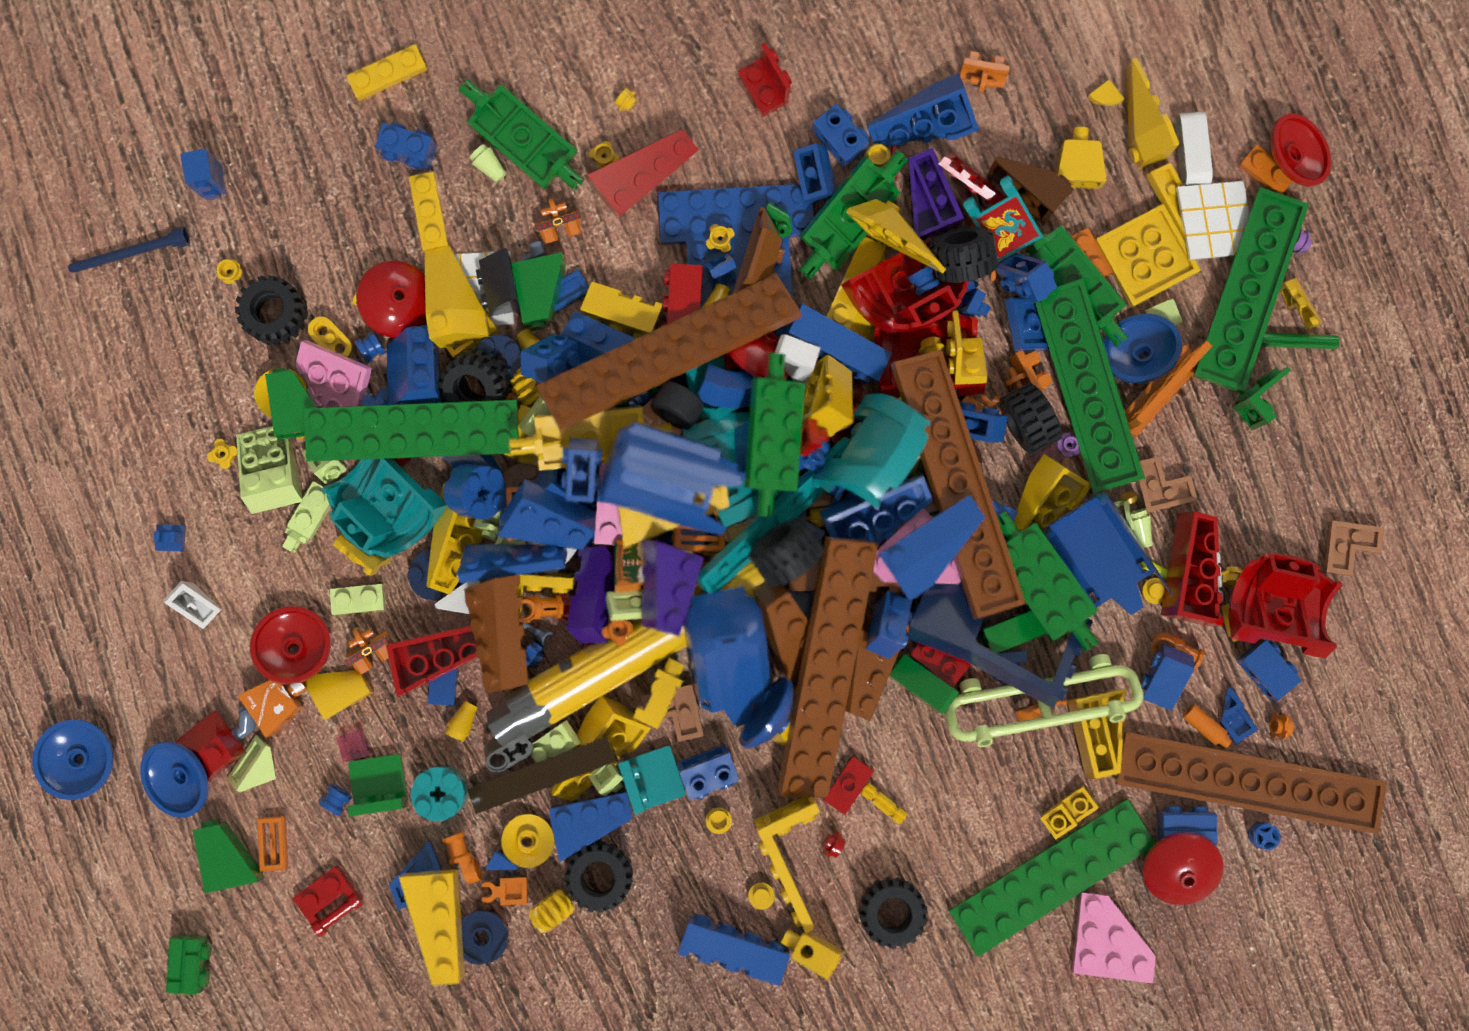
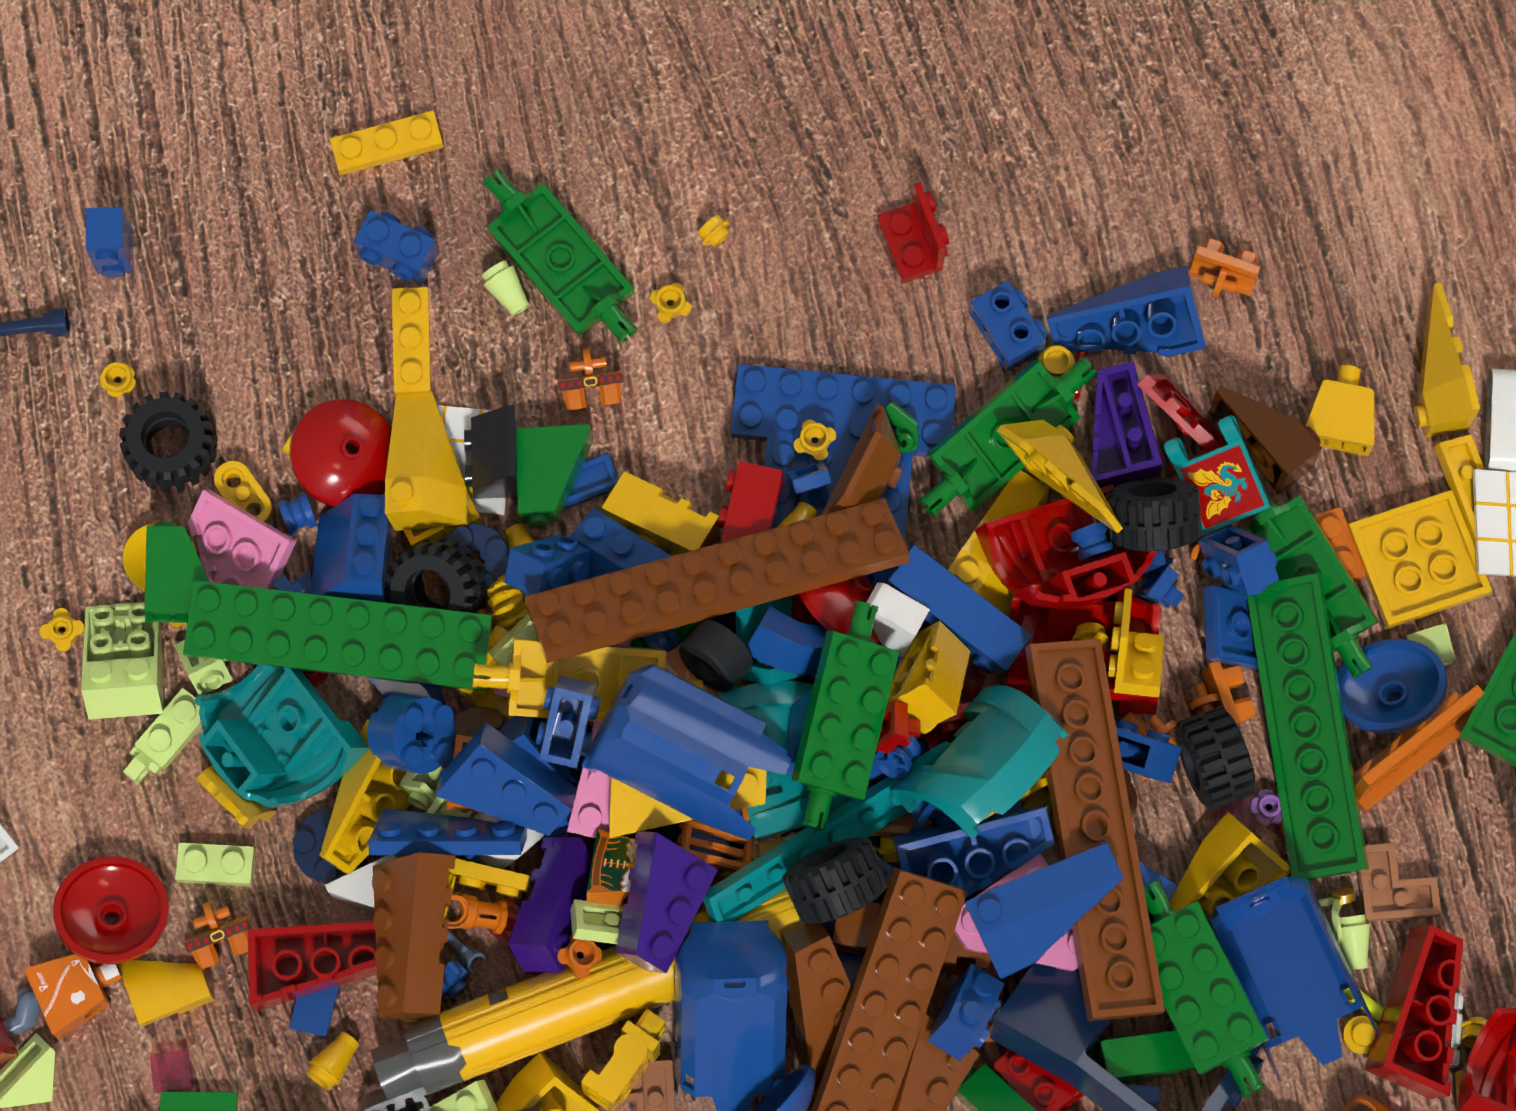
camera: 10 degrees right, 10 degrees down
(537, 250) = (553, 417): sand blue hand -> none
(637, 173) = (710, 334): red wedge -> none
(815, 173) = (963, 371): blue brick -> none
(1106, 95) = (1394, 328): yellow tile -> none

